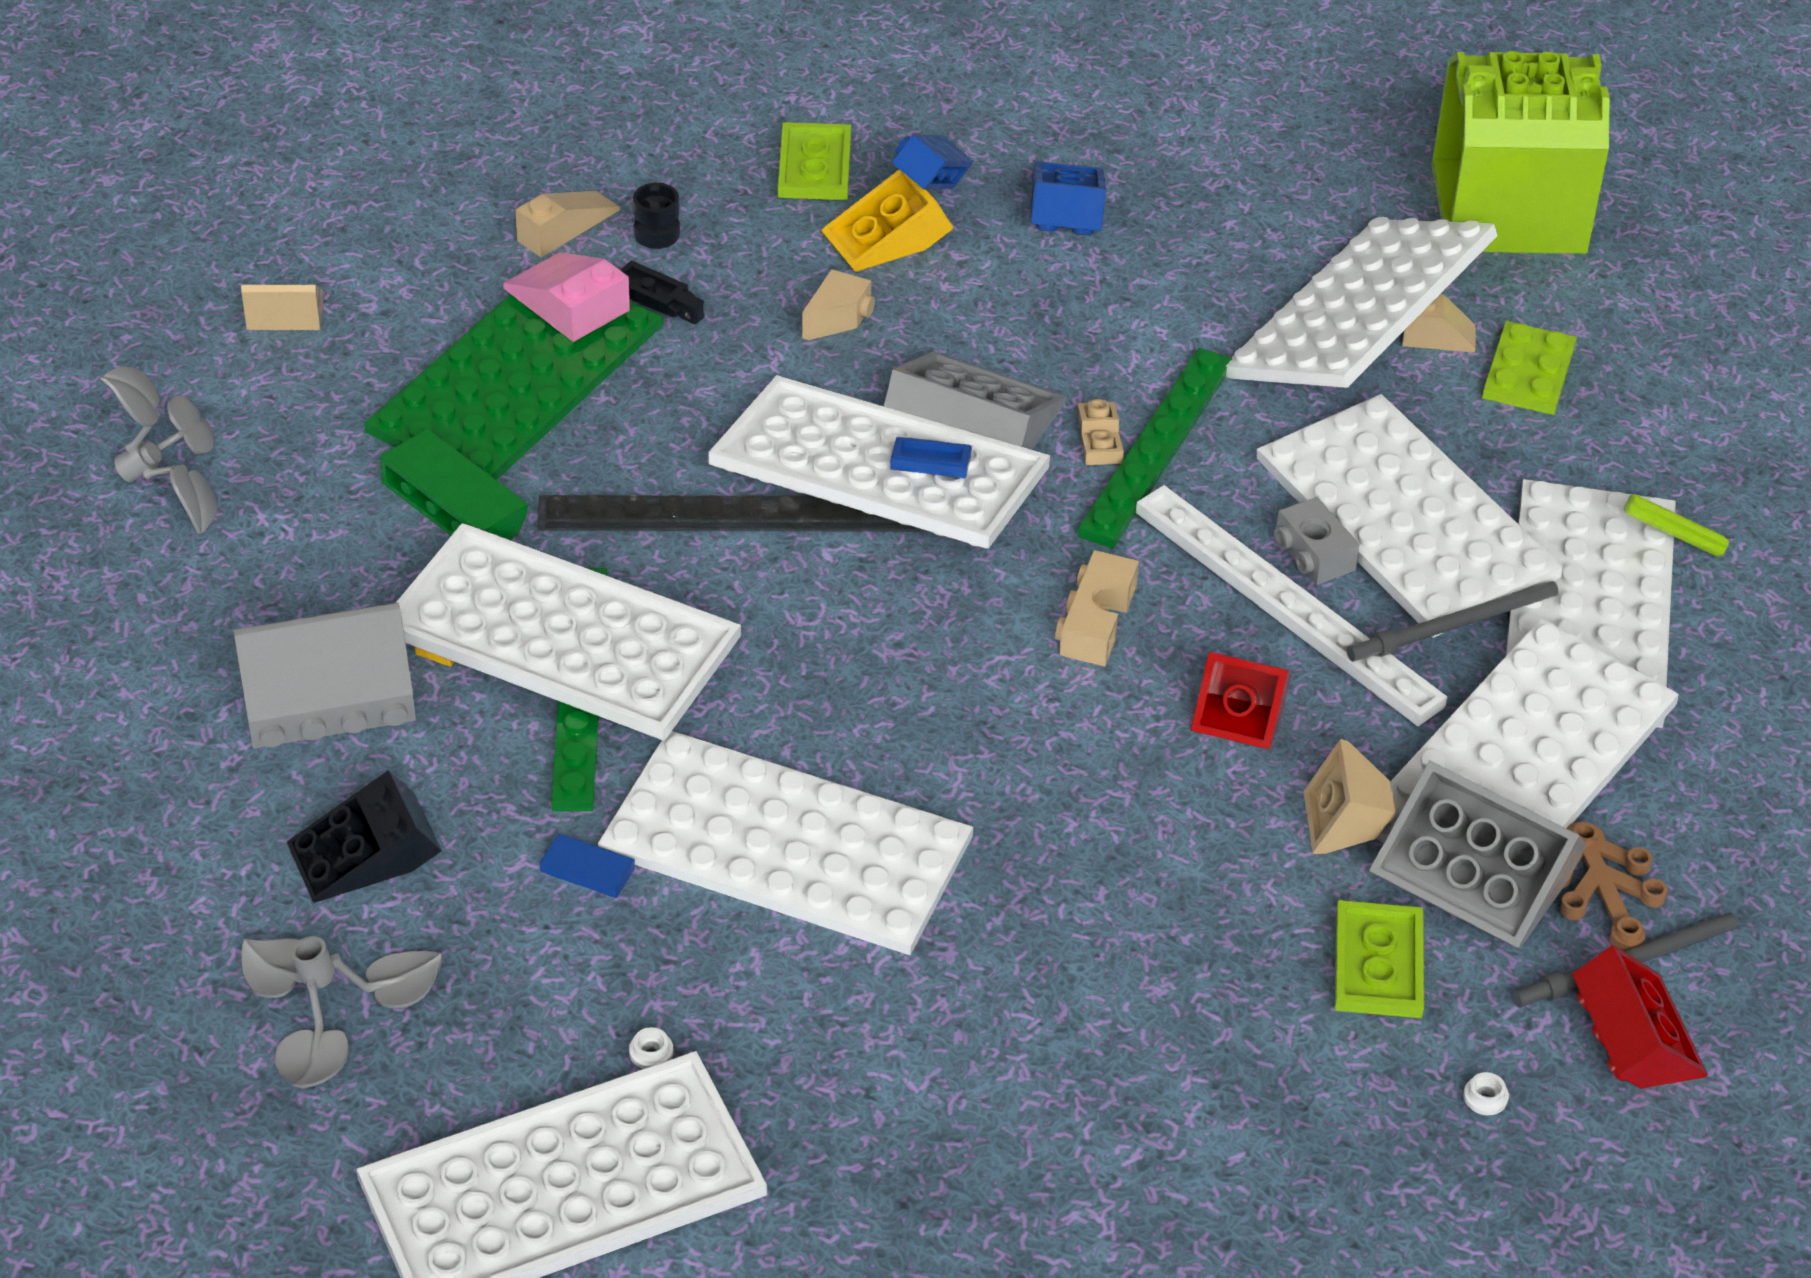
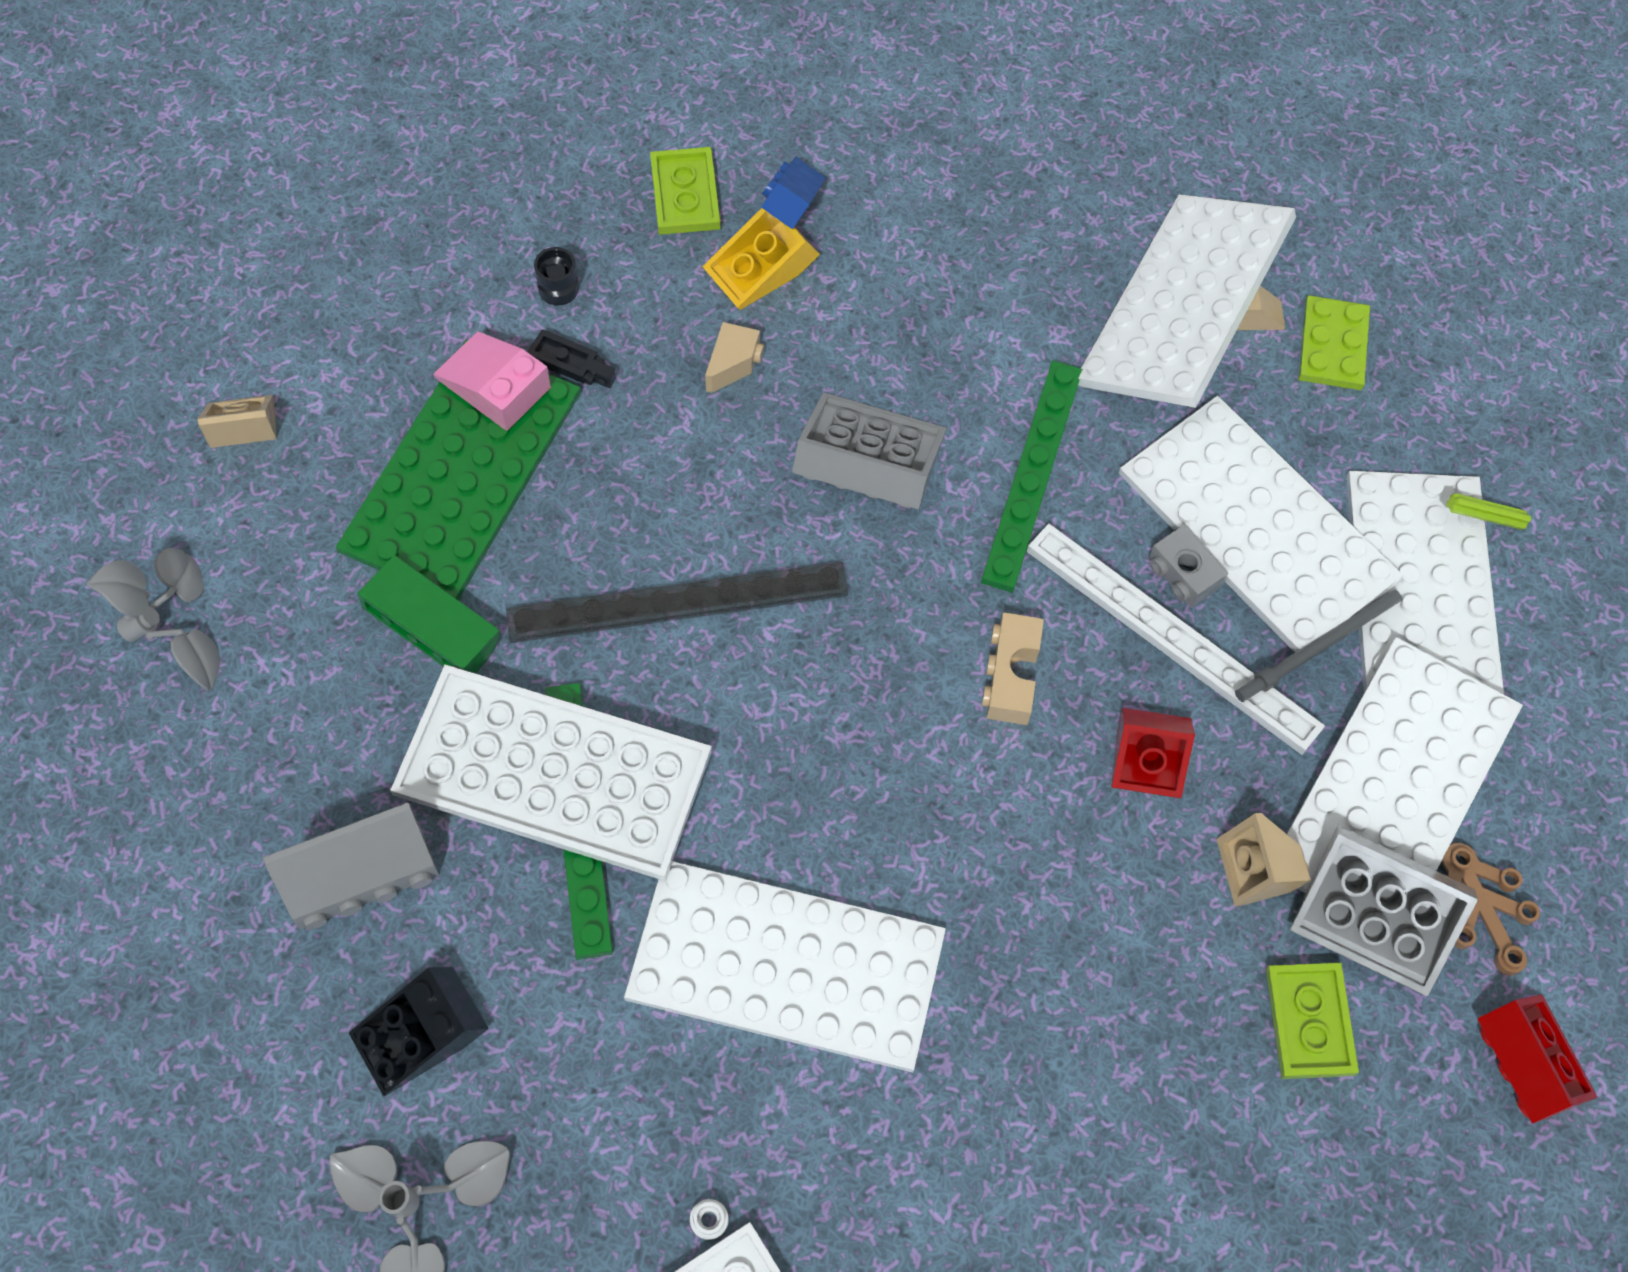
camera: 10 degrees left, 20 degrees up
(559, 217) = (472, 285): tan slope -> none
(587, 865) = (618, 1020): blue tile -> none
(843, 454) = (800, 533): white plate -> none
(931, 457) = (846, 529): blue tile -> none
(1068, 197) = (912, 202): blue slope -> none
(1100, 432) = (982, 466): tan slope -> none
(1487, 1084) = (1432, 1150): white plate -> none
(1523, 148) = (1307, 121): lime container -> none
(1557, 984) = (1461, 1023): dark grey bar -> none

